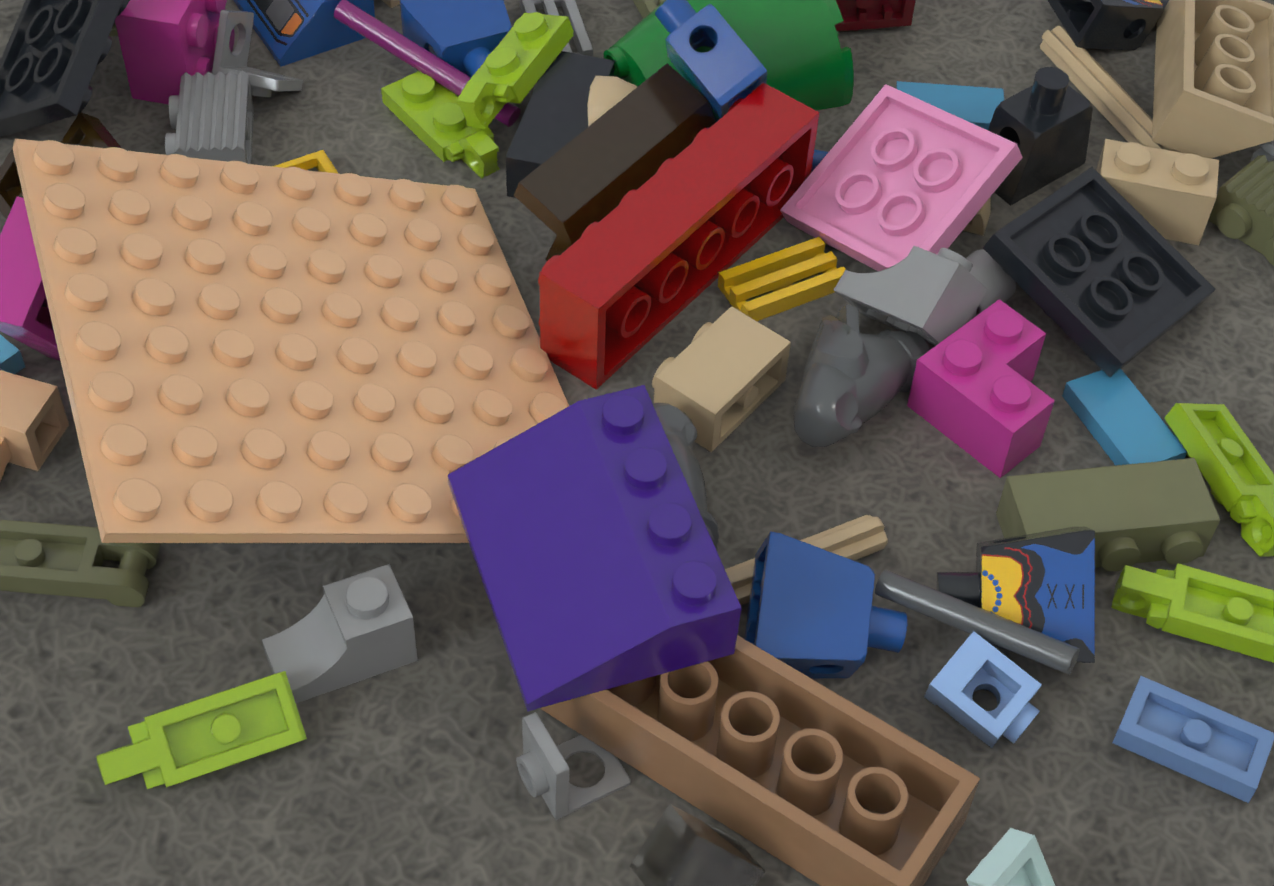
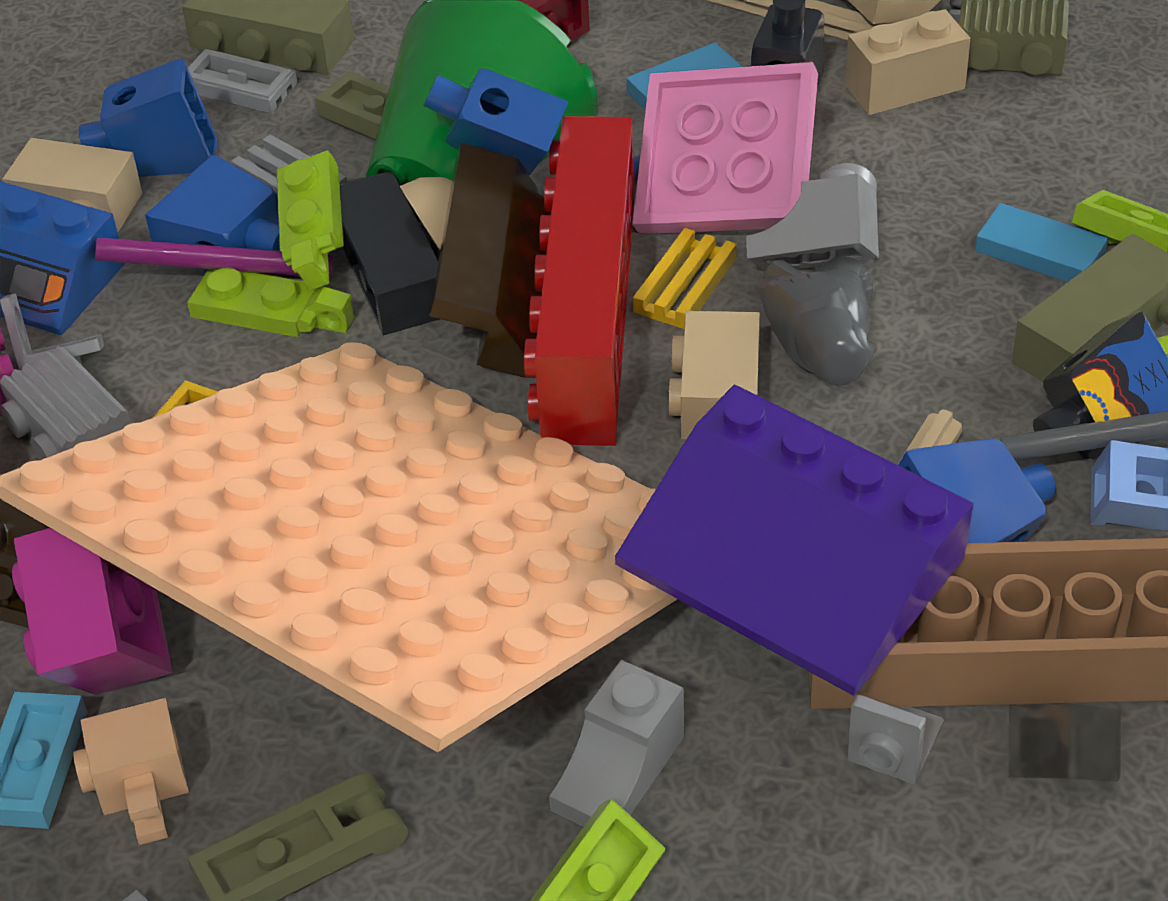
camera: 30 degrees left, 5 degrees down
(981, 389) = (930, 278): dark pink brick -> none
(1099, 270) = (932, 137): black plate -> none

